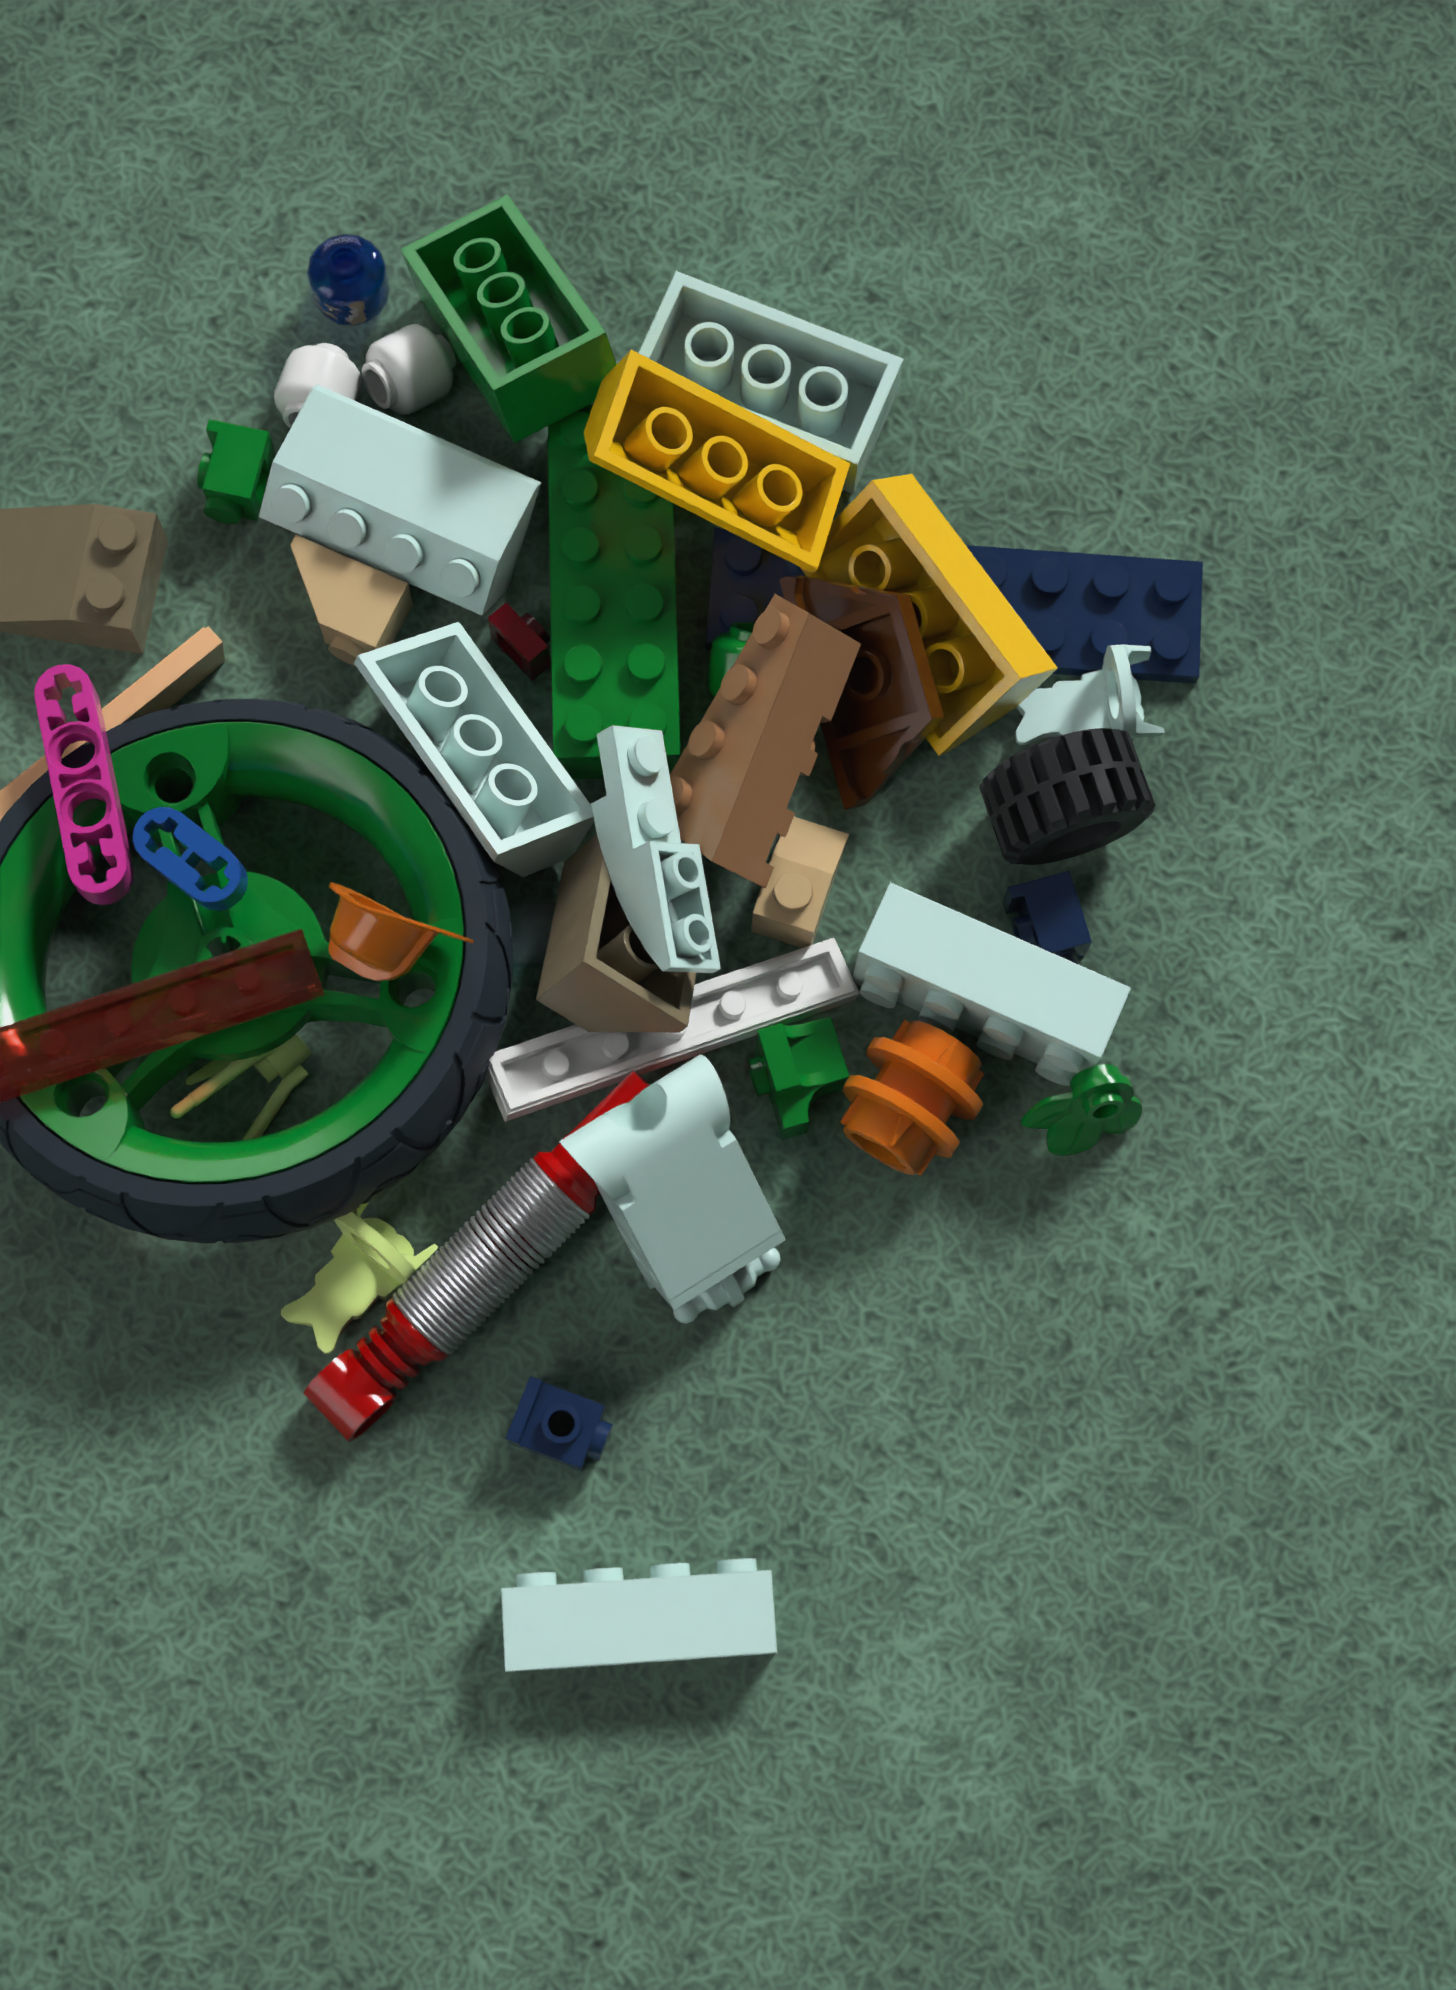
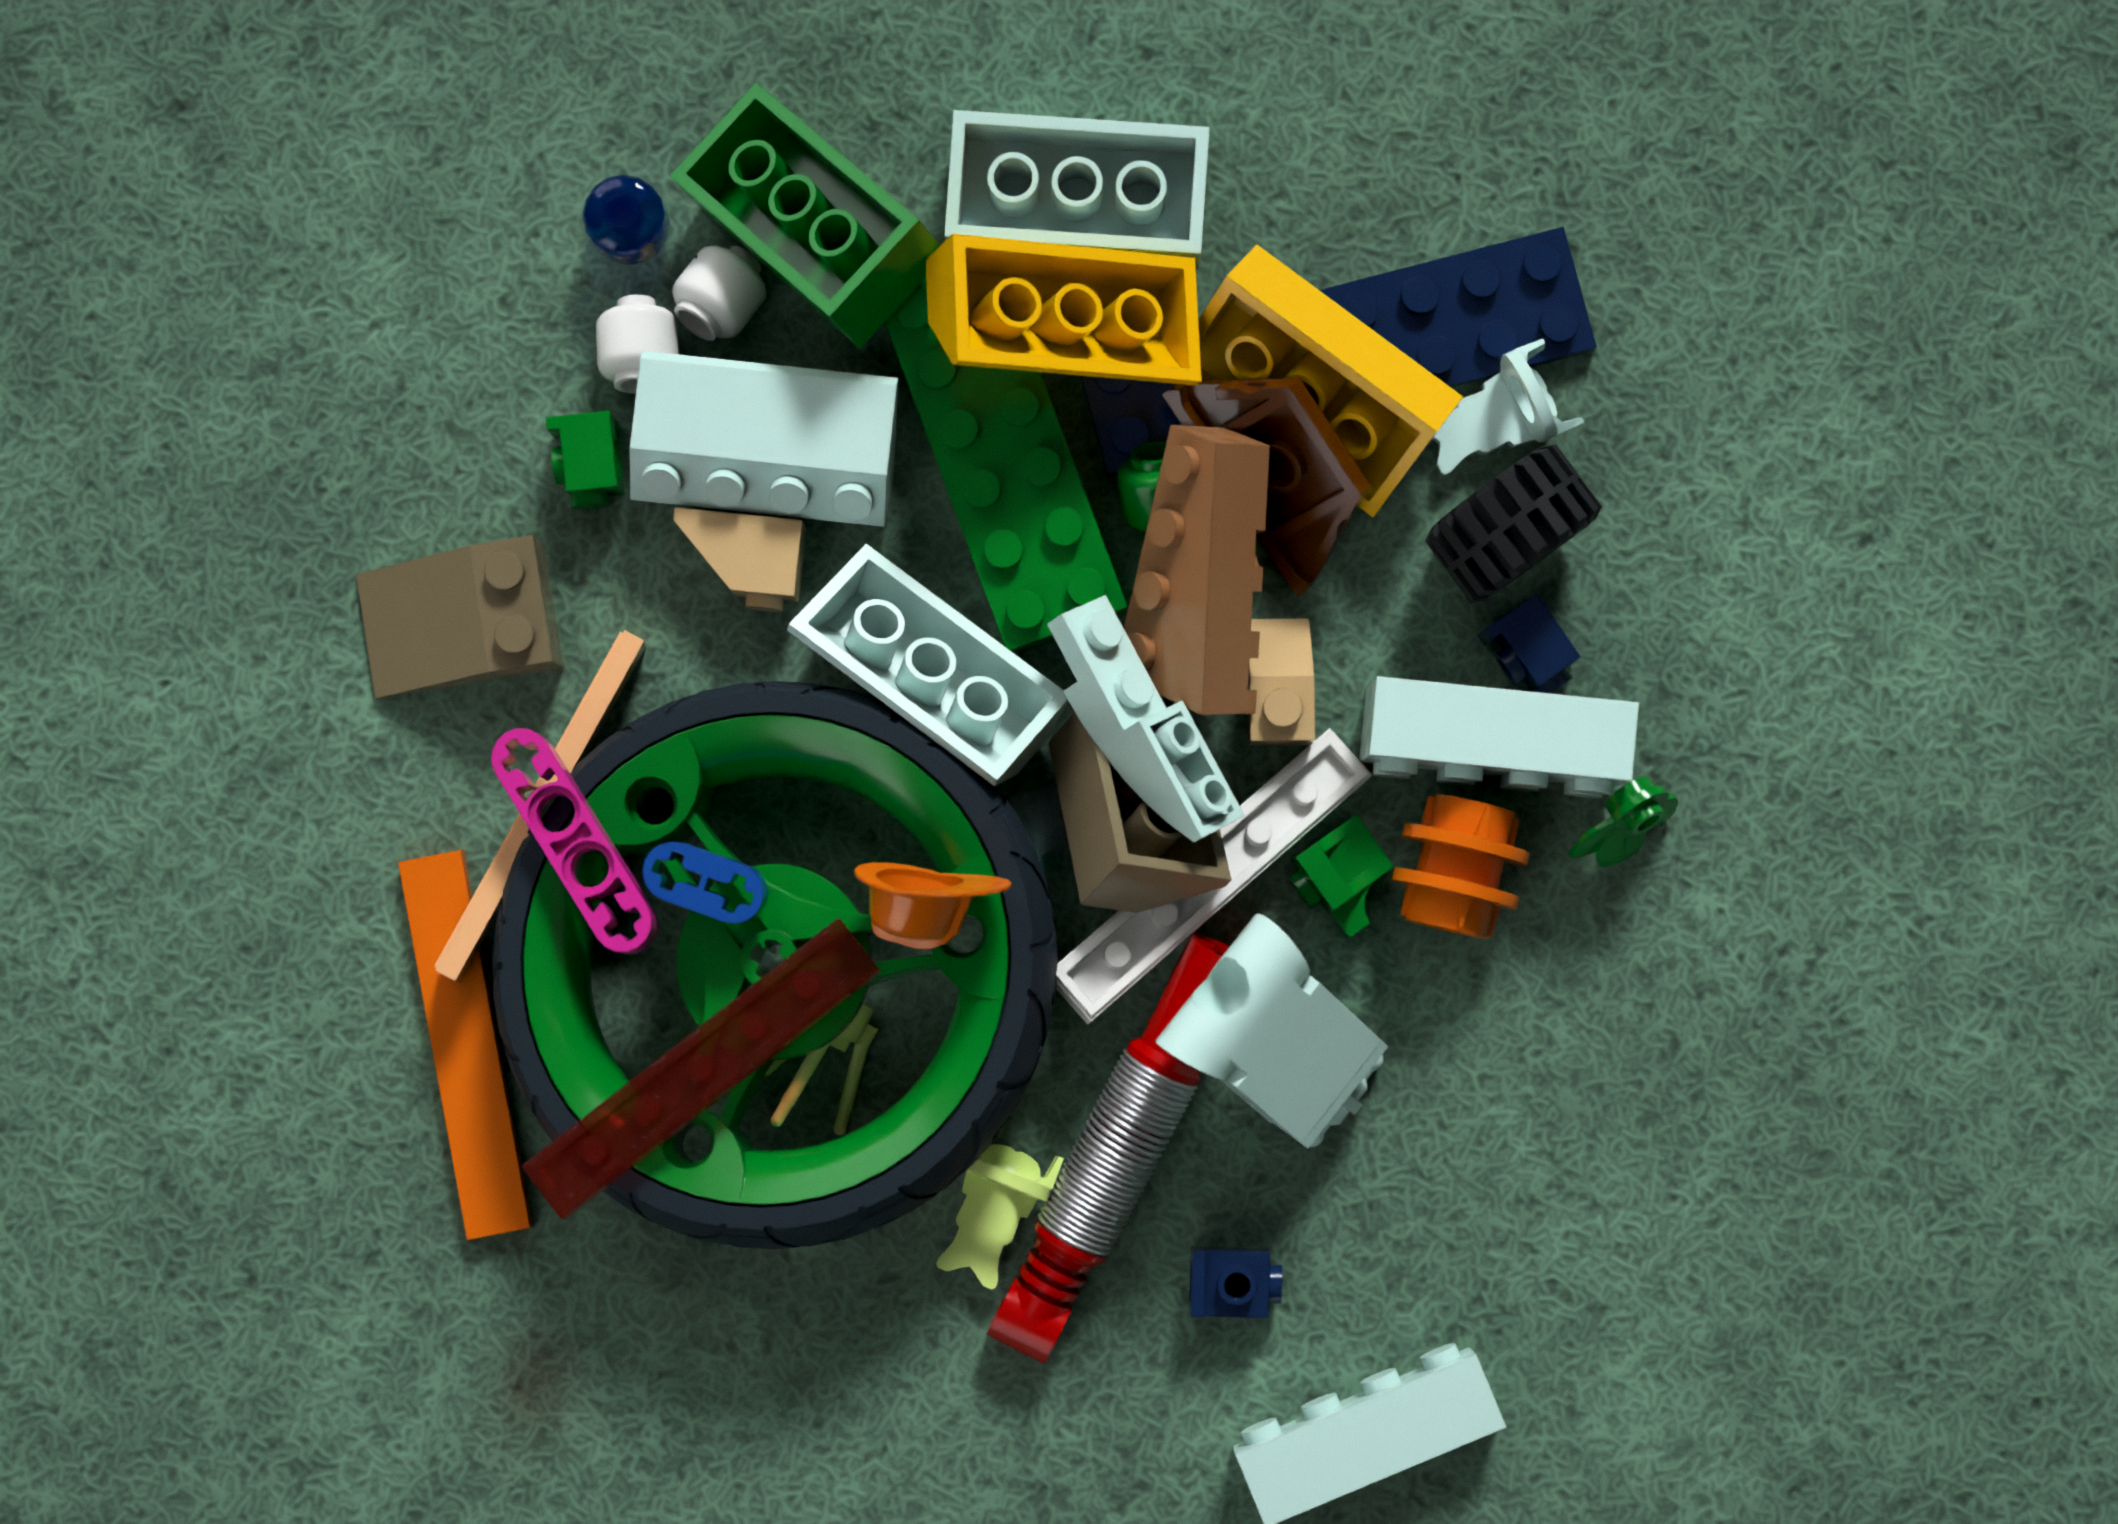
camera: 10 degrees left, 10 degrees up
(521, 640) = (928, 533): dark red plate -> none

